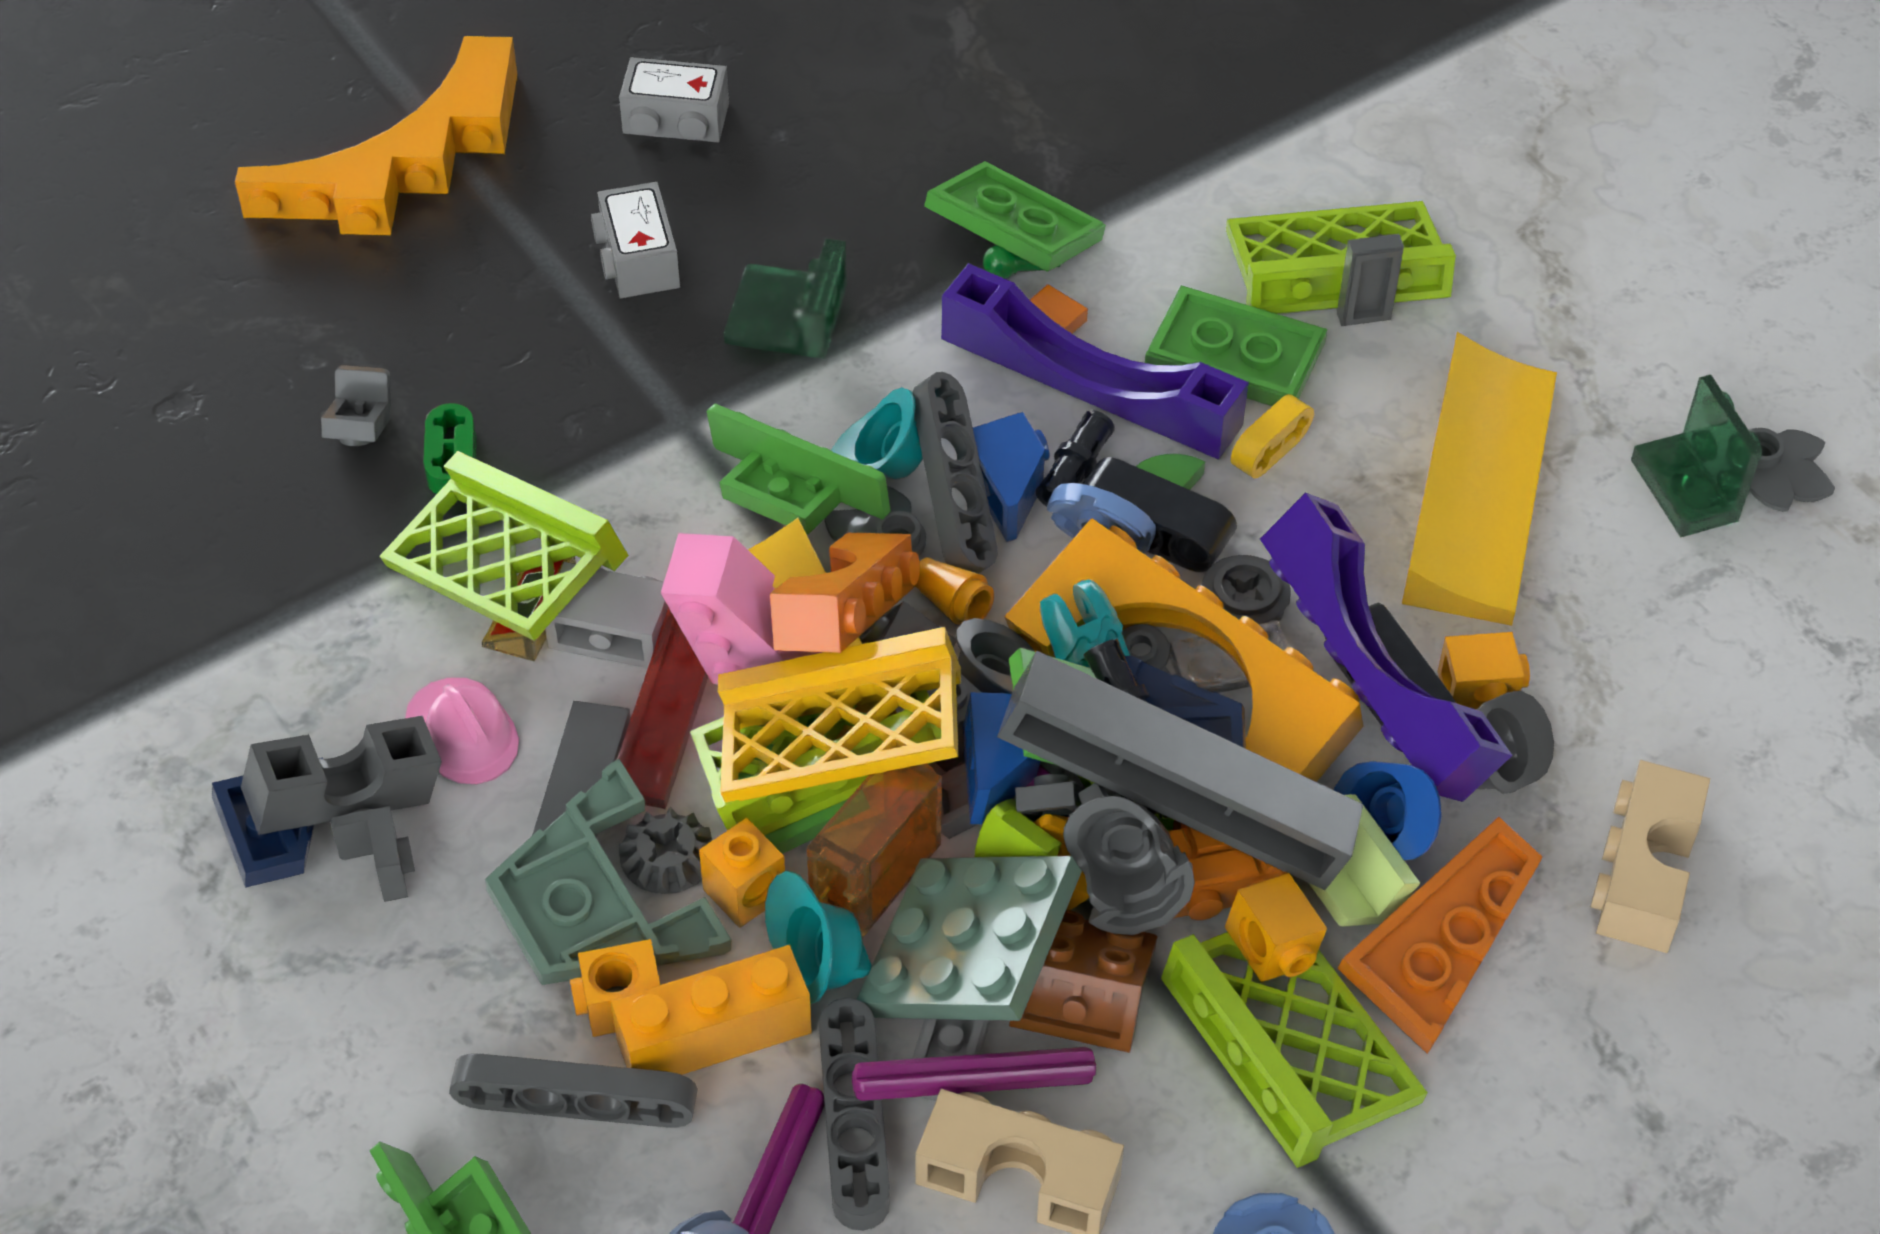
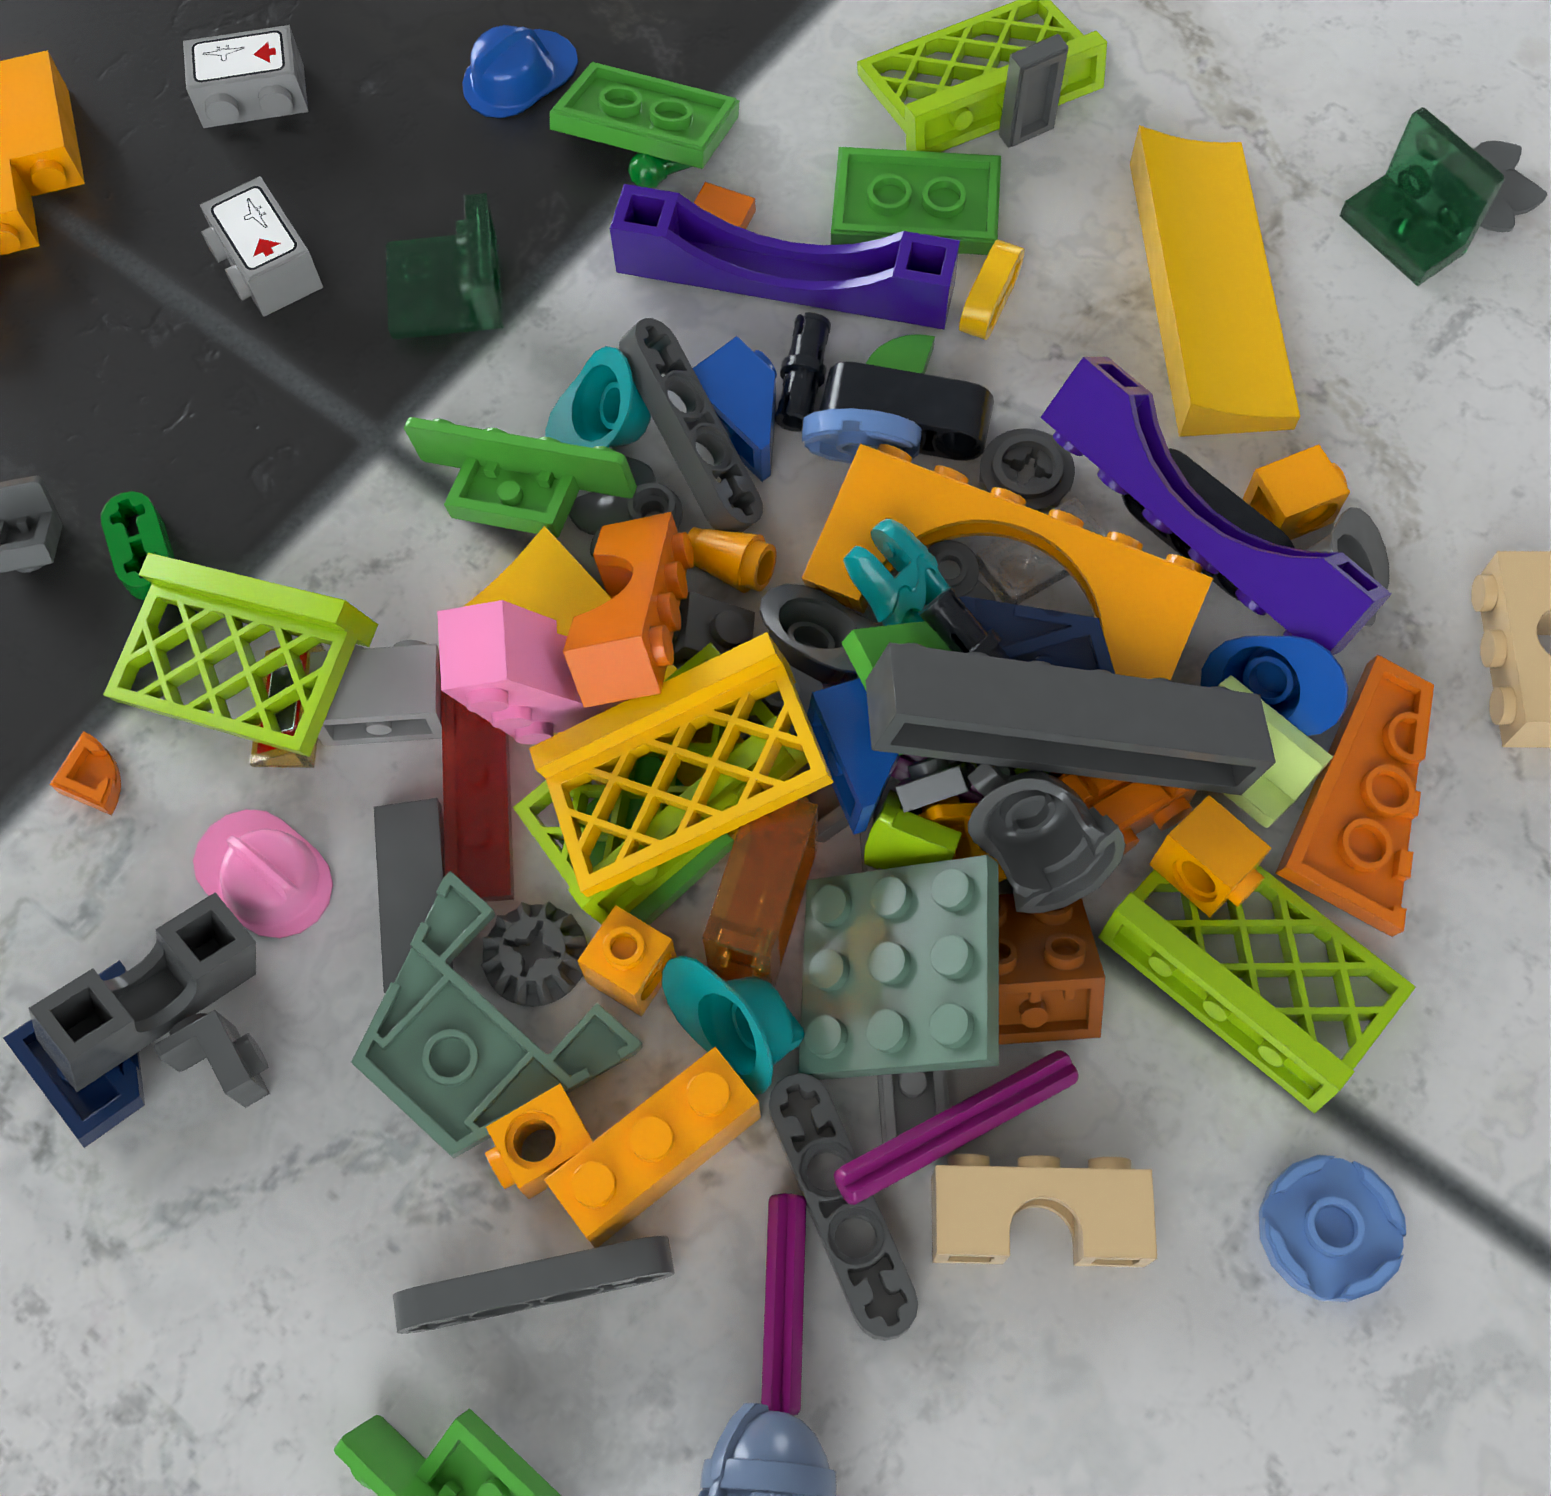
camera: 15 degrees left, 15 degrees up
(345, 615) = (90, 775): none -> orange tile
(915, 150) = (516, 69): none -> blue piece

